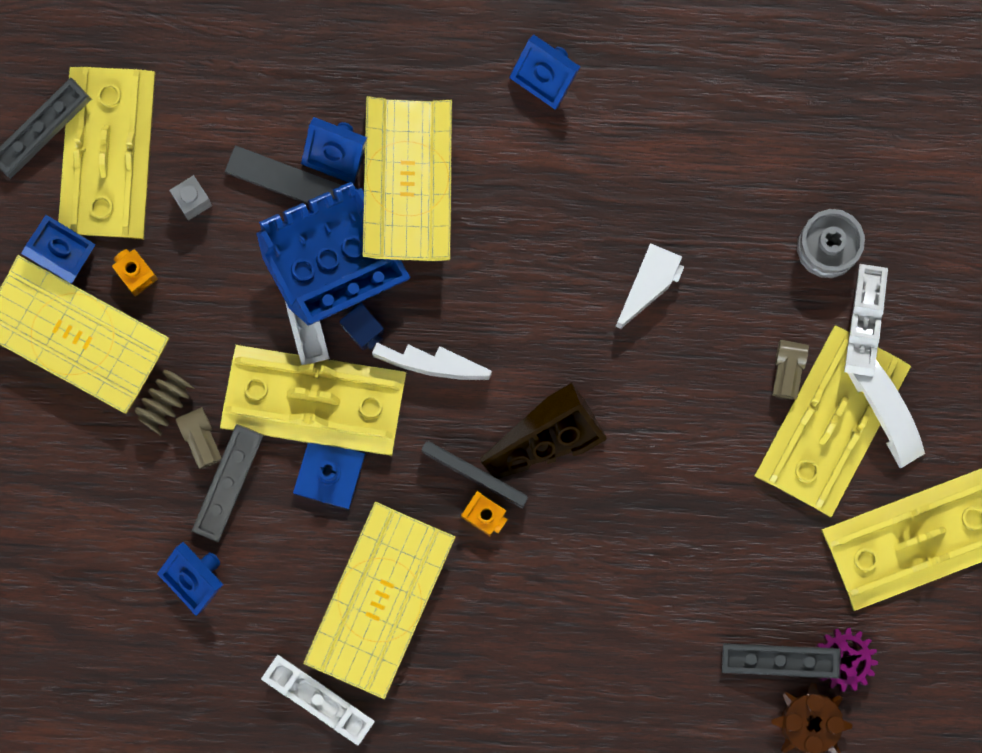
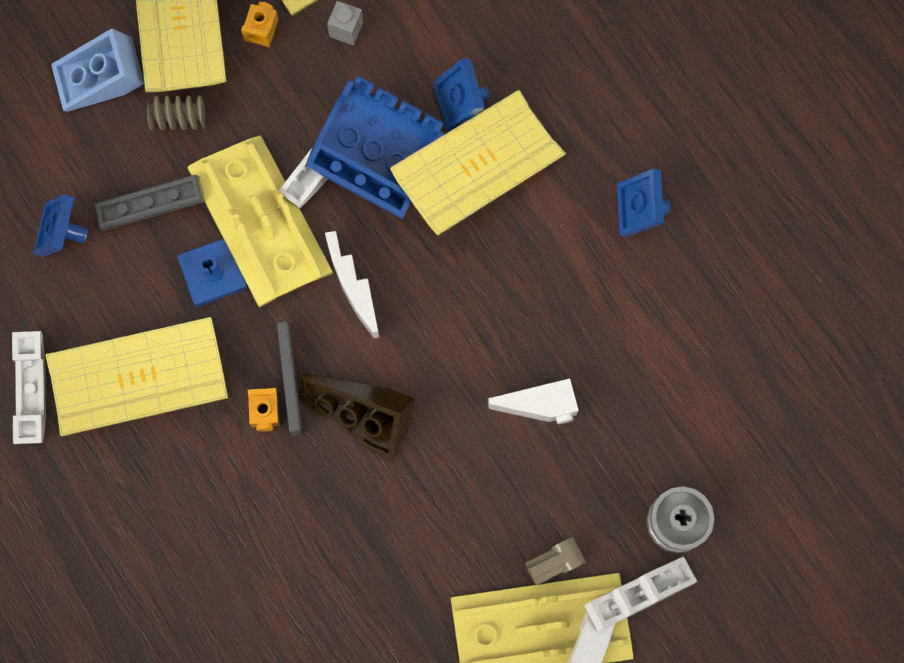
camera: 55 degrees right, 5 degrees down
(70, 444) = (98, 71): none -> light blue slope
(197, 432) = (172, 153): dark tan piece -> none
(277, 176) = (410, 71): dark grey tile -> none
(362, 327) = (341, 214): dark blue brick -> none

